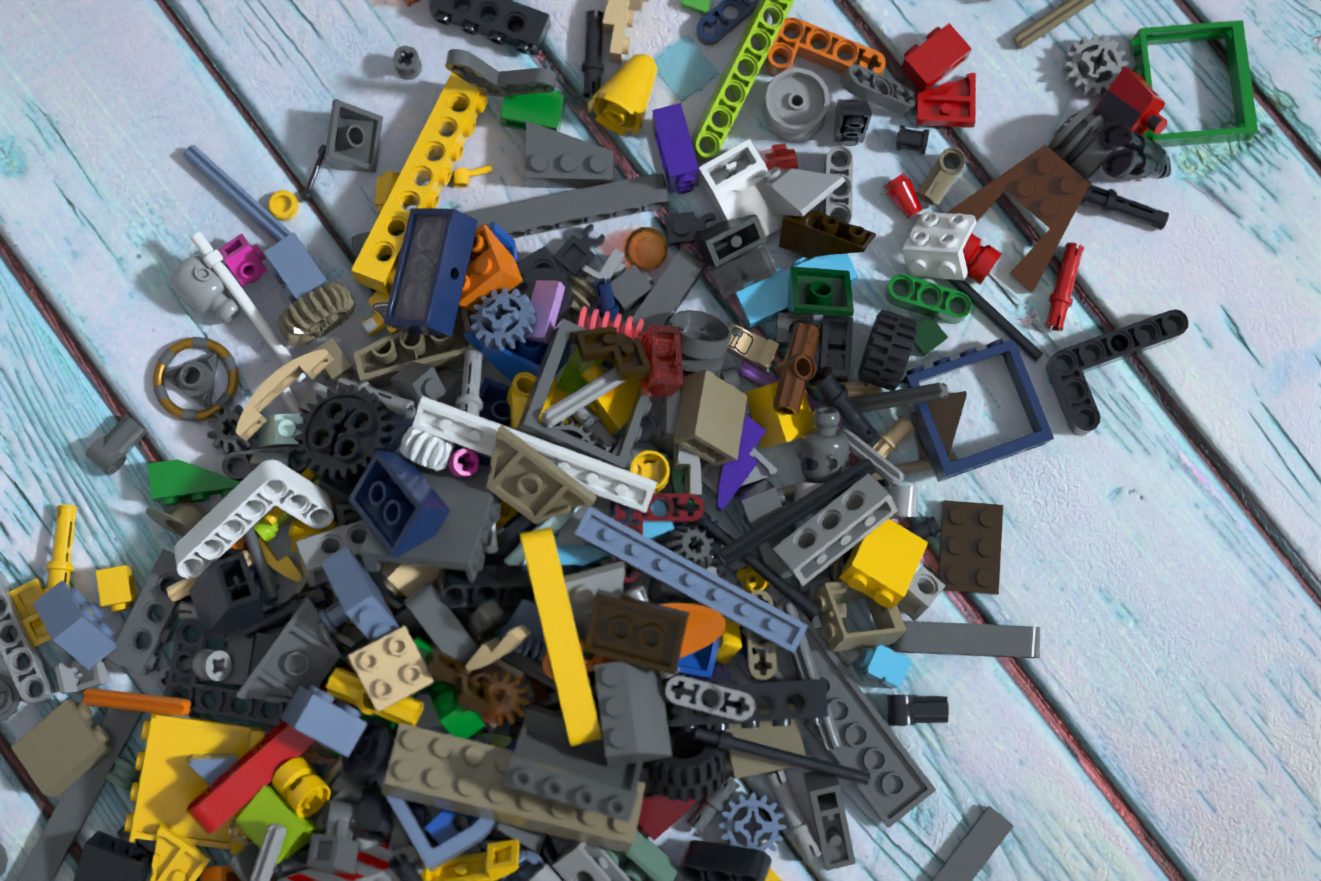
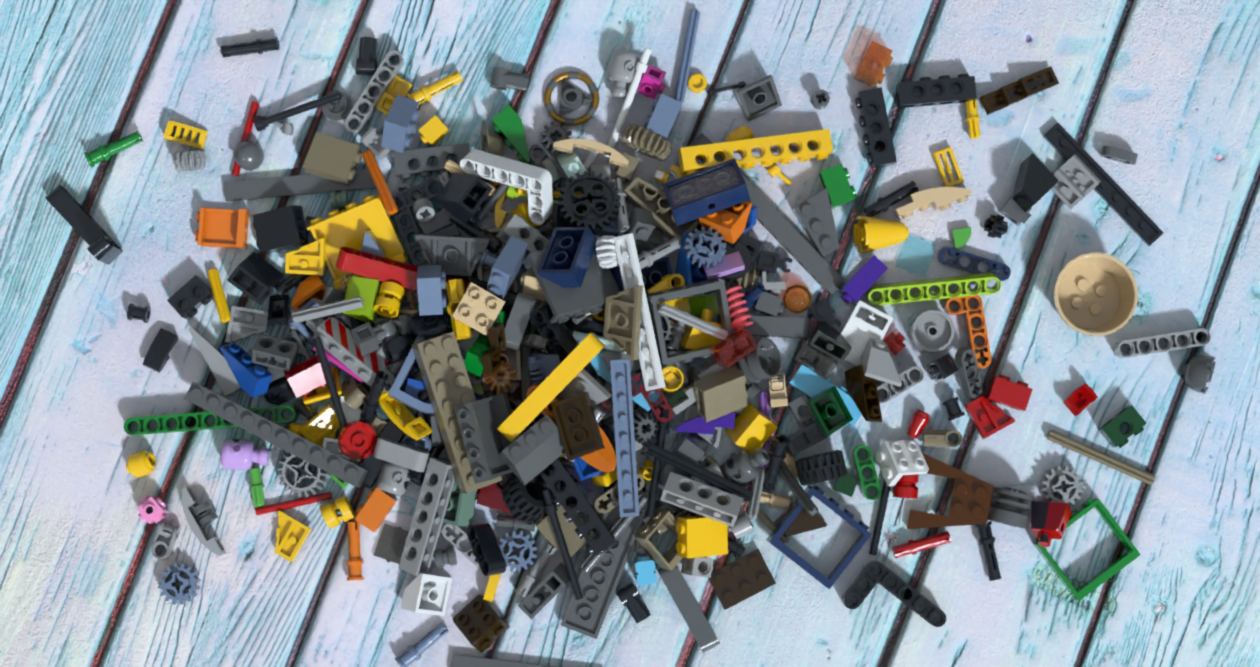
camera: 60 degrees right, 5 degrees up
(470, 457) = (617, 278): dark pink bush -> none
(495, 649) = (523, 357): tan slope -> none
(499, 83) = (836, 157): dark grey beam -> none
(607, 343) = (727, 320): dark brown plate -> none
(685, 699) = (568, 471): light grey beam -> none
(796, 369) = (786, 422): reddish brown piece -> none
(1138, 156) = (1021, 544): black piece -> none

